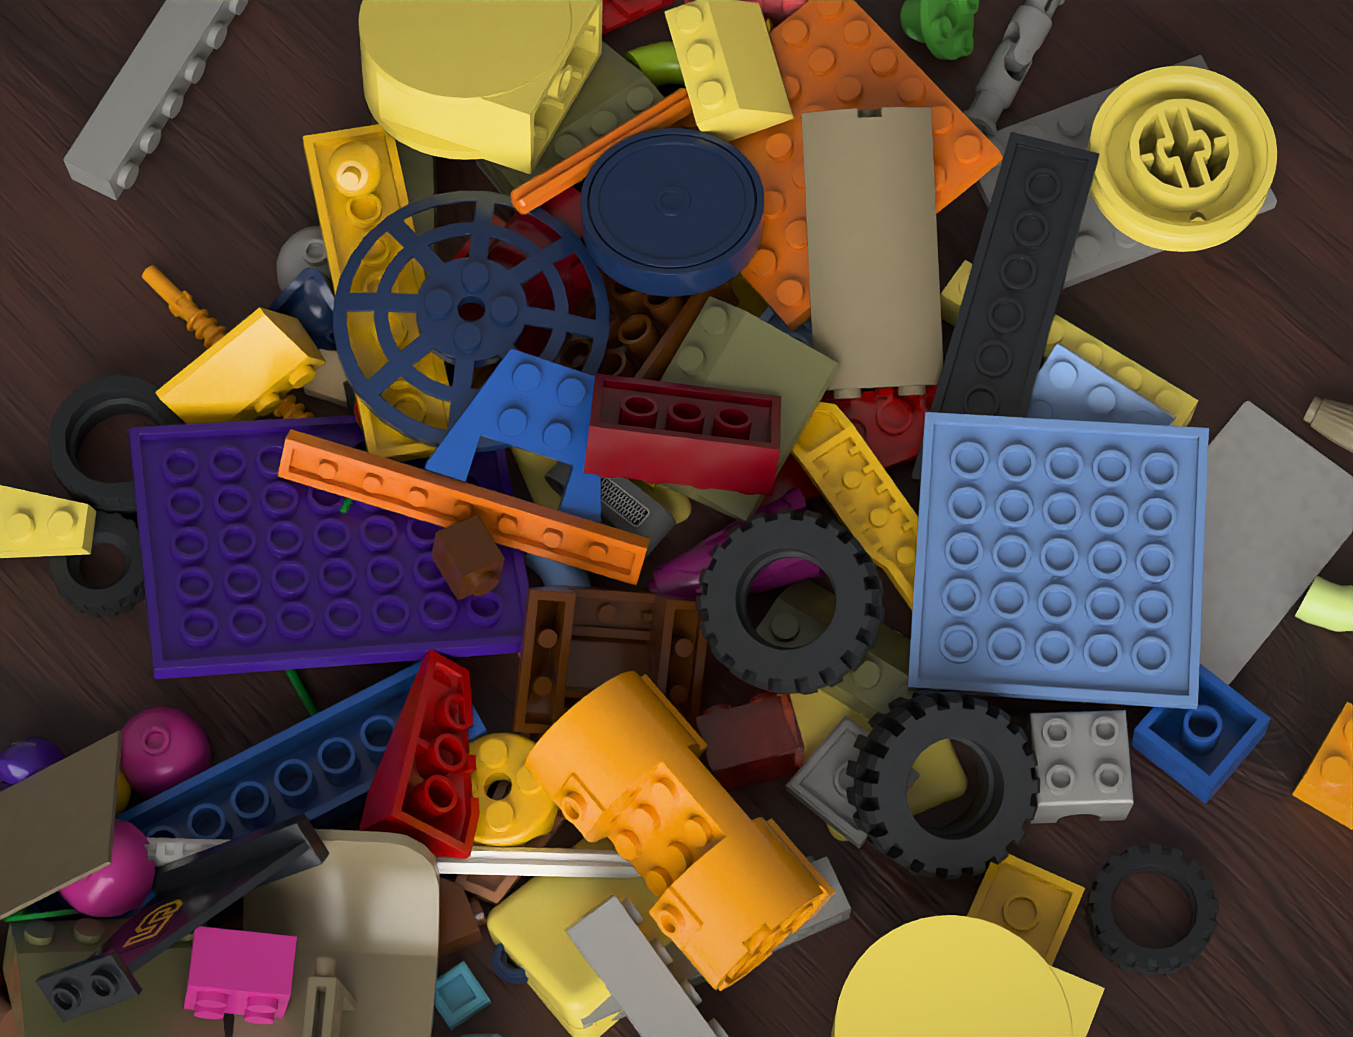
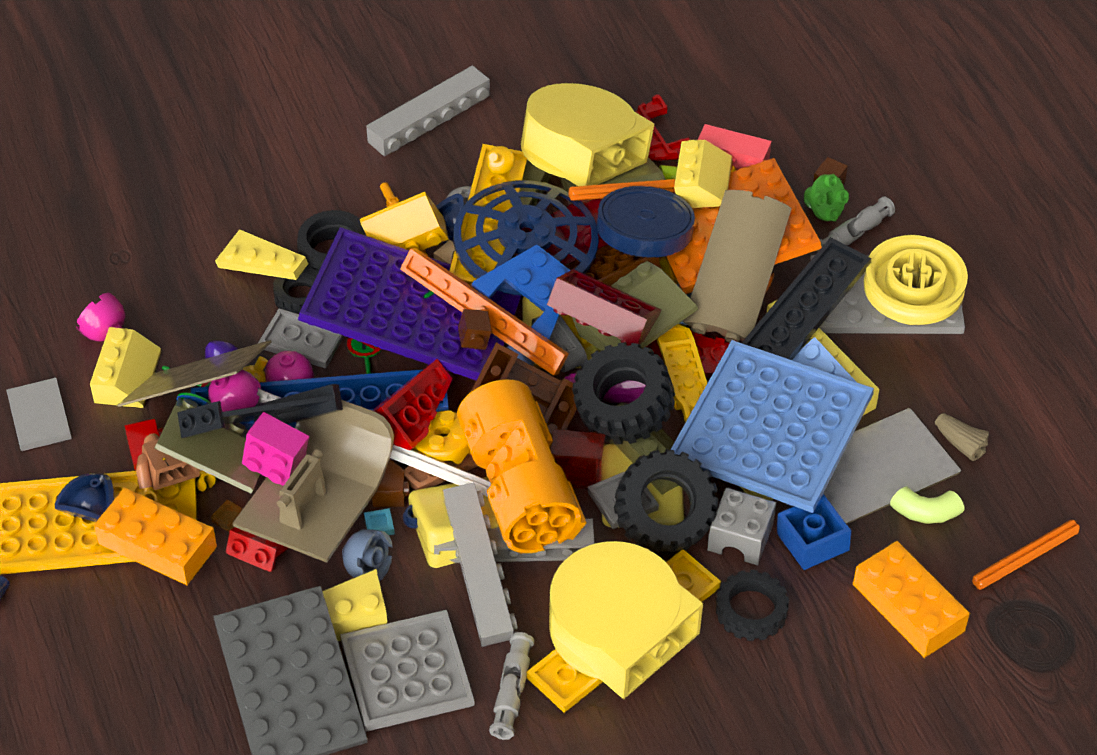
camera: 20 degrees right, 20 degrees down
(118, 667) = (294, 335): none -> light grey tile

